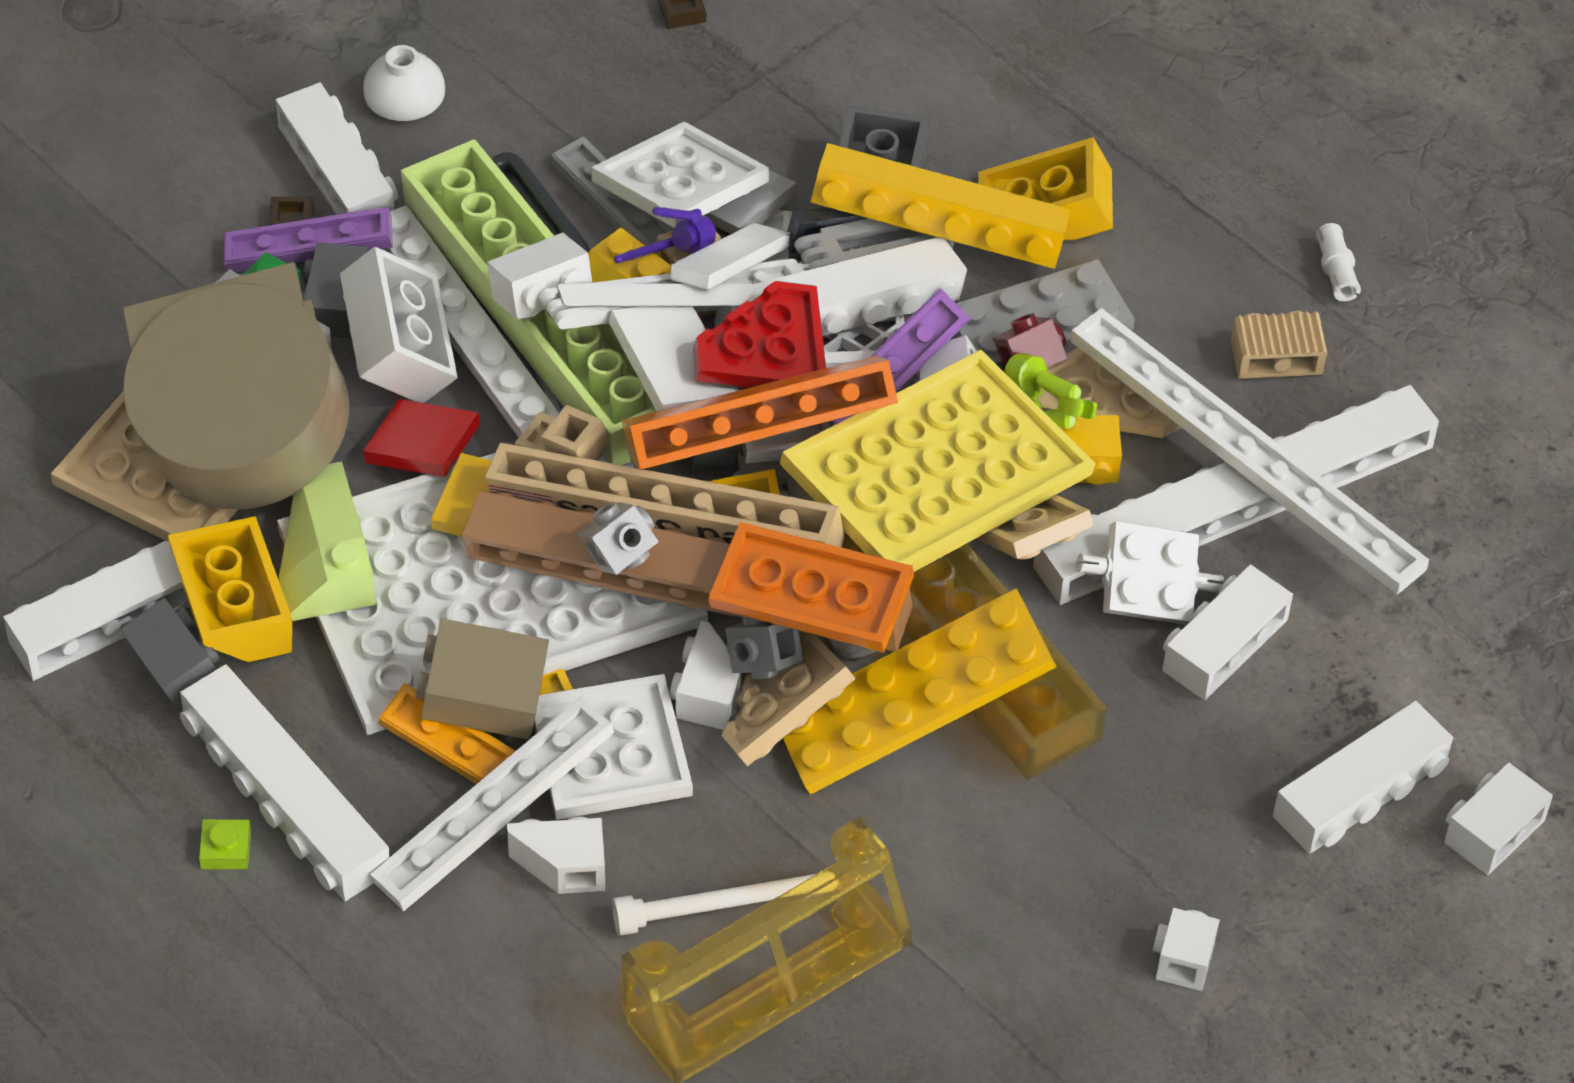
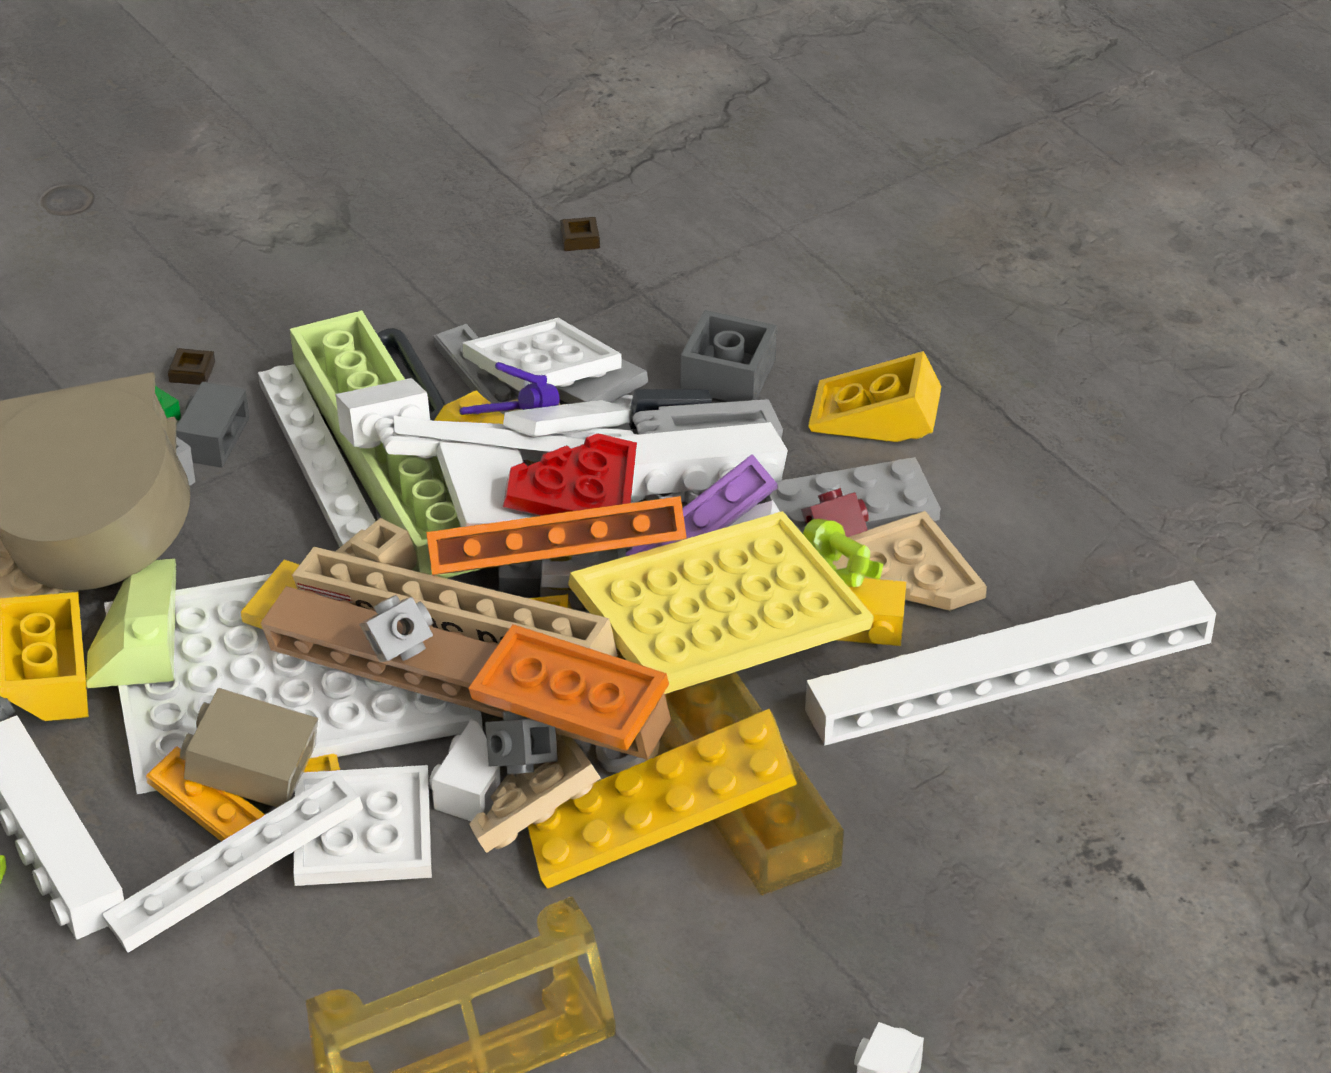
camera: 10 degrees right, 10 degrees down
(298, 239) = (183, 382): medium lavender tile -> none
(333, 151) = (241, 321): white brick -> none
(398, 325) = (253, 451): white brick -> none
(403, 85) = (317, 271): white piece -> none
(421, 438) = (254, 547): red tile -> none
(561, 852) = (291, 913): white slope -> none
(632, 913) = (349, 976): white piece -> none
(940, 205) = (772, 396): yellow brick -> none
(1040, 526) = (791, 672): tan plate -> none
(1150, 573) = (912, 719): white plate -> none
(1226, 631) = (980, 780): white brick -> none
(1250, 451) = (1029, 623): white plate -> none
(1278, 345) = (1073, 540): tan brick -> none
(1338, 262) = (1141, 478): white pin -> none
(1363, 778) = (1094, 924): white brick -> none
(1497, 818) = (1226, 975): white brick -> none

